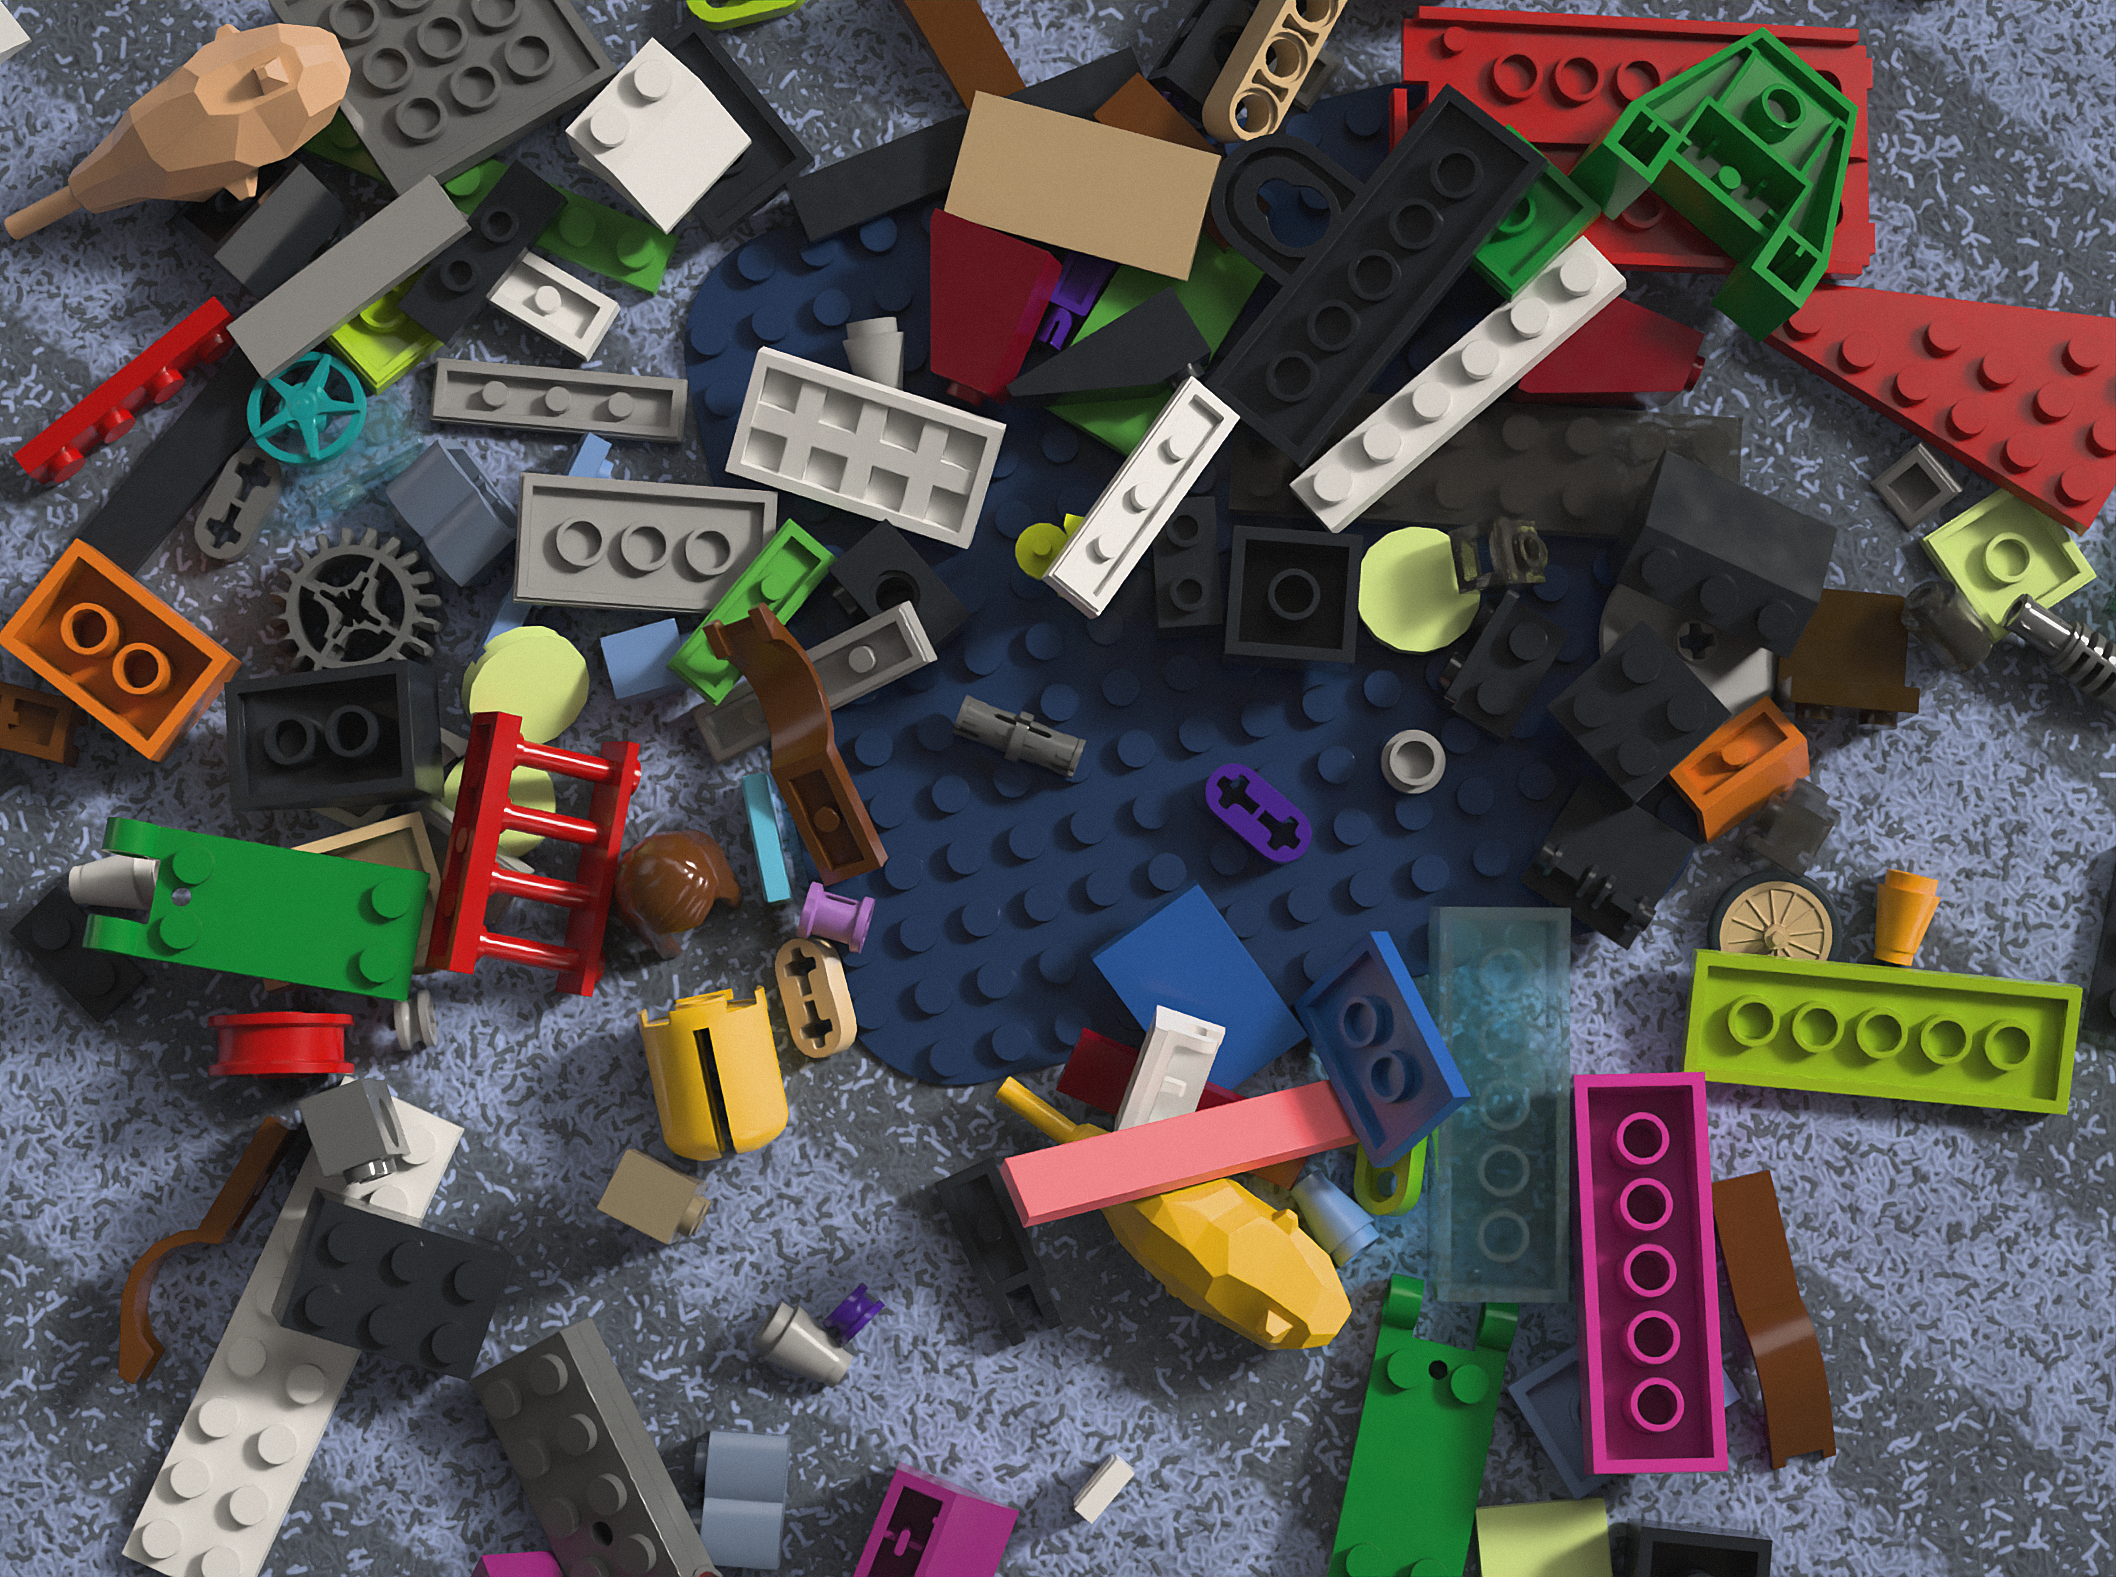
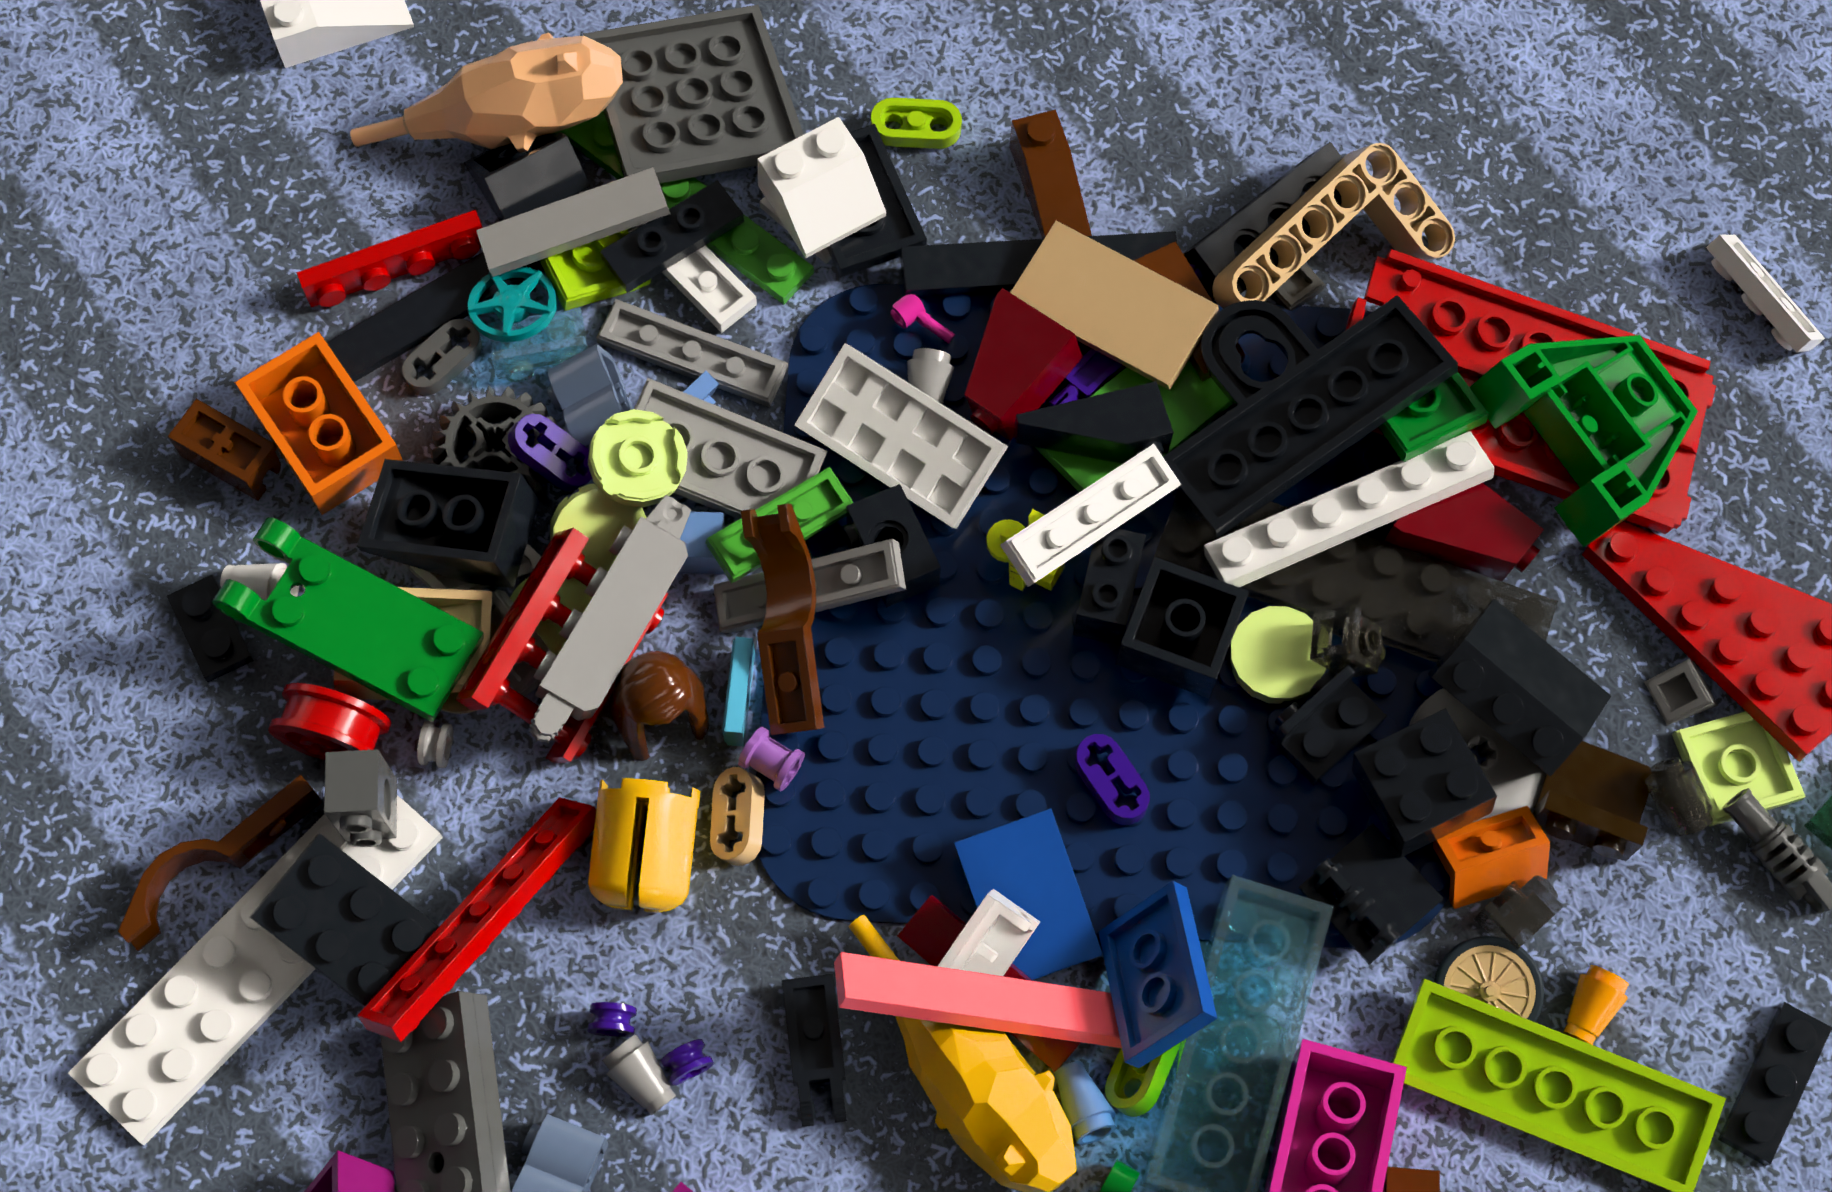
camera: 20 degrees right, 15 degrees down
(436, 592) = (551, 453): none -> dark purple beam
(545, 588) = (637, 458): none -> yellowish green tile
(552, 1229) = (478, 920): none -> red plate
(586, 807) = (612, 621): none -> light grey hinge
(655, 1197) = (566, 920): dark tan brick -> none
(747, 1292) = (612, 1019): none -> dark purple bush
(823, 263) = (911, 309): none -> dark pink hand
(1019, 736) = (949, 671): dark grey pin -> none
(1413, 762) = (1241, 775): light grey plate -> none

